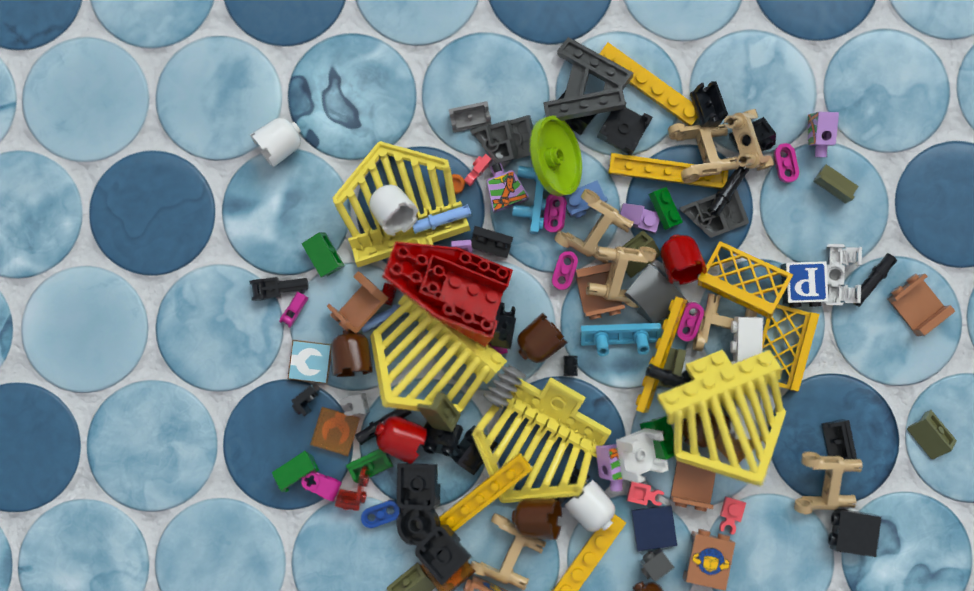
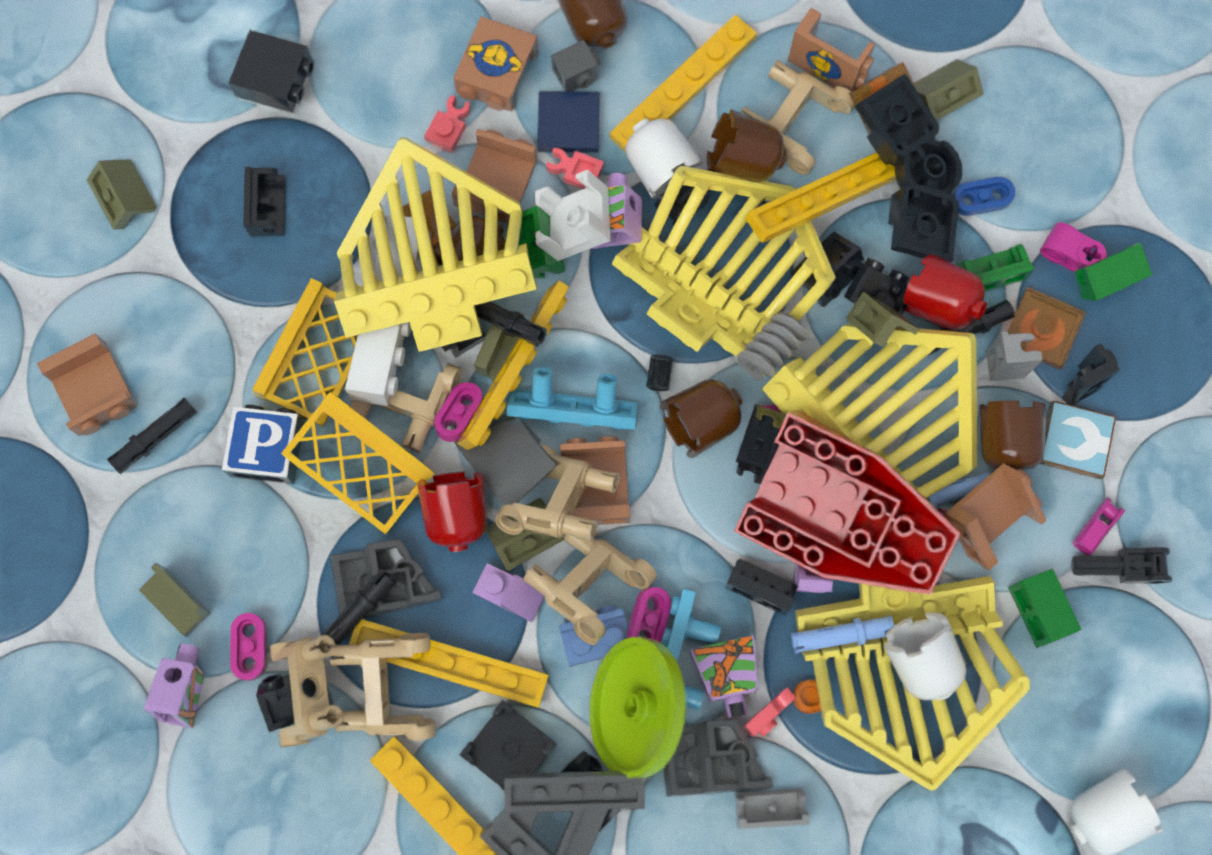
camera: 175 degrees left, 10 degrees down
(351, 499) = (1027, 222): clear red bracket -> none
(565, 271) = (645, 523): dark pink plate -> none
(665, 208) = (463, 600): green plate -> none
(708, 104) = (359, 764): black hinge -> none
(834, 469) = (295, 125): tan connector -> none
(838, 257) = (216, 425): white piece -> none

